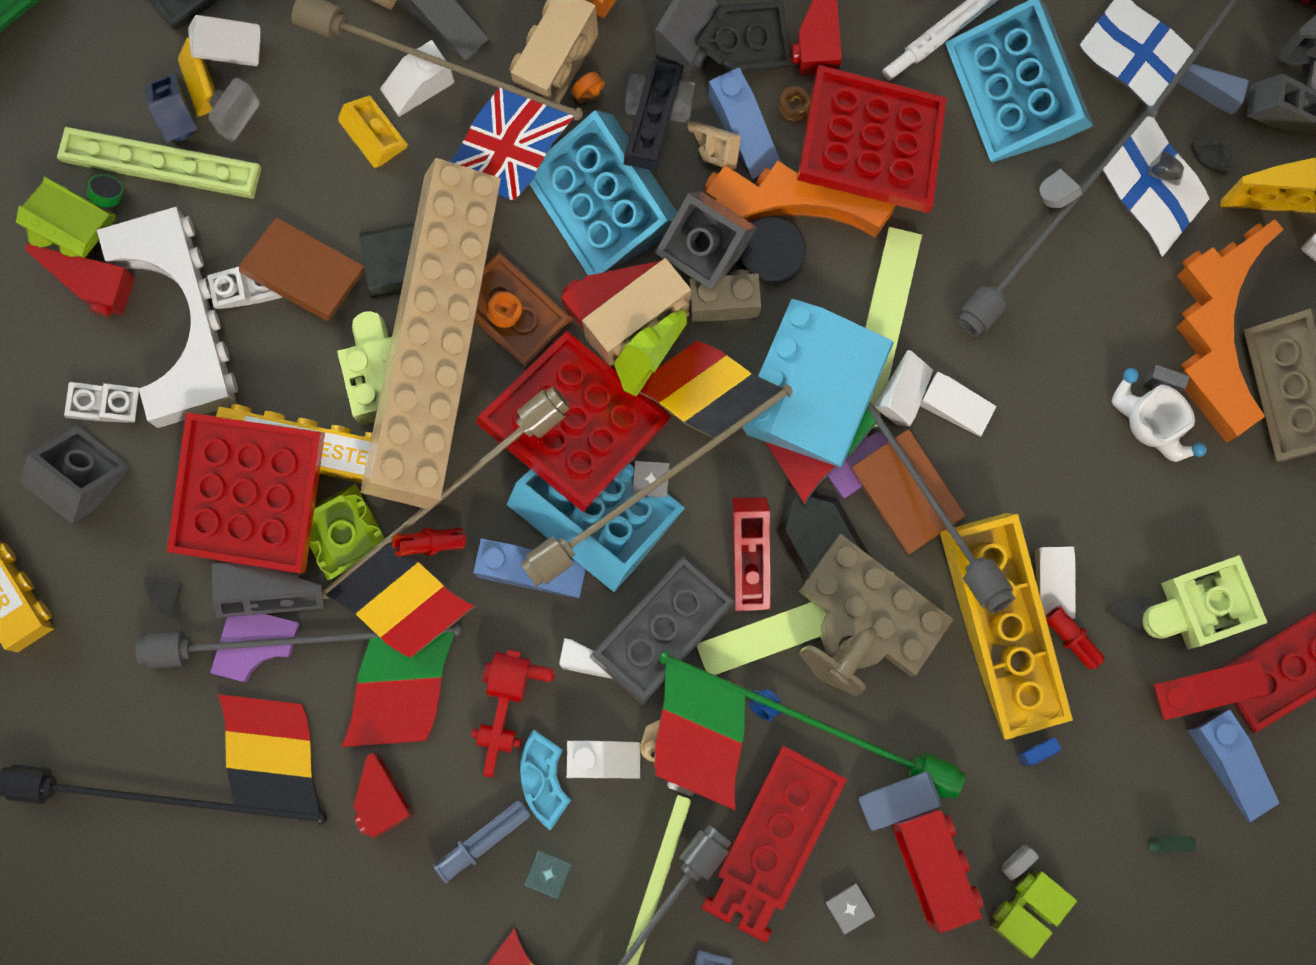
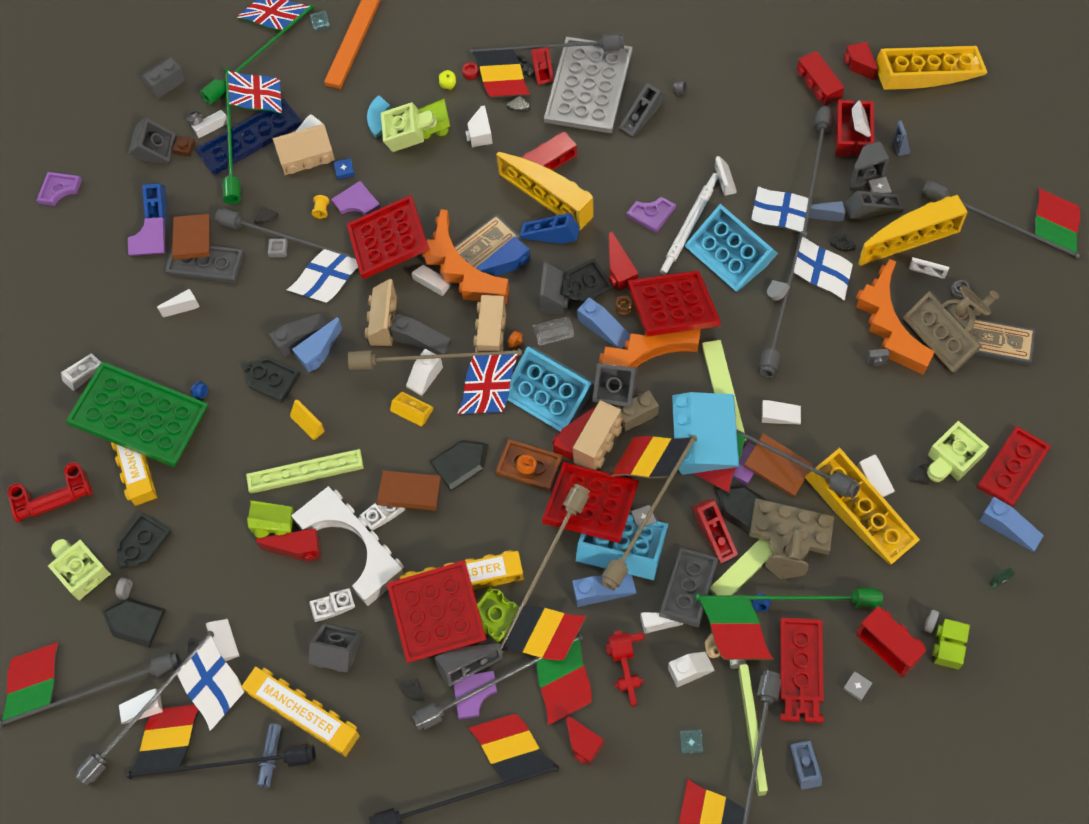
camera: 20 degrees left, 15 degrees down
(104, 190) = (283, 496): tile -> none
(170, 108) = (300, 440): dark blue slope -> none
(224, 40) = (314, 394): white slope -> none
(232, 108) = (334, 426): clear piece -> none
(365, 365) = (478, 522): yellowish green brick -> none
(428, 541) = (544, 596): red pin -> none
(431, 336) = (498, 491): tan brick -> none
(481, 841) = (649, 736): sand blue axle -> none
(540, 779) = (662, 694): medium azure tile -> none
(647, 351) = (613, 450): lime slope -> none
(653, 115) = (557, 337): black tile -> none
(716, 145) = (594, 340): tan tile -> none
(774, 250) = (651, 377): black tile -> none
(900, 801) = (853, 617): sand blue slope -> none
(905, 390) = (751, 417): white slope -> none
(1039, 752) = (911, 563): blue tile -> none
(1074, 637) = (899, 499): red axle -> none
(1158, 418) = (883, 375): white piece -> none
(1167, 169) = (824, 258): clear smoke tile -> none
(1210, 689) = (978, 494): red slope -> none

